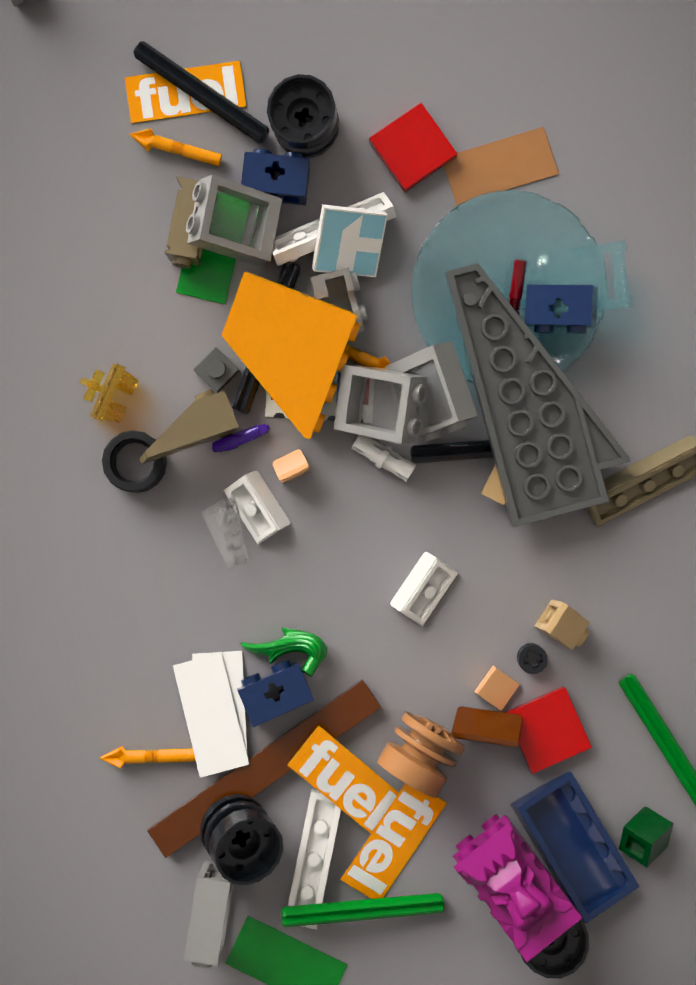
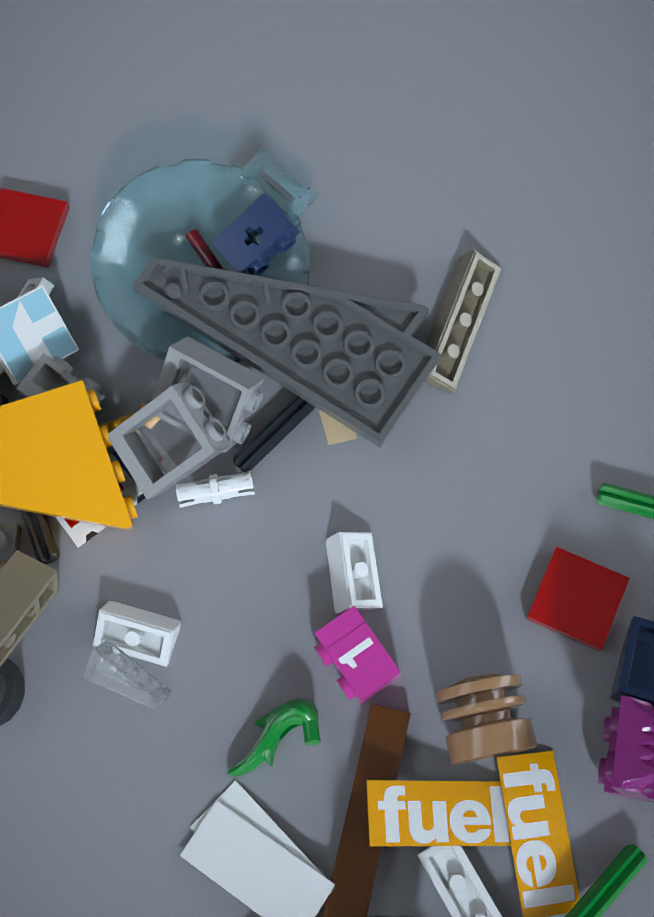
camera: 35 degrees left, 15 degrees down
(234, 440) = (65, 592): dark purple piece -> none
(291, 466) = (139, 569): light nougat slope -> none
(293, 695) = (298, 814): dark blue brick -> none
(378, 644) = (356, 655): none -> dark pink brick
(487, 726) = (522, 640): reddish brown slope -> none
(497, 688) = (498, 601): light nougat slope -> none
(501, 165) = (119, 165): medium nougat sticker -> none
(538, 651) = (500, 537): black bush -> none
(563, 624) = (502, 491): tan slope -> none

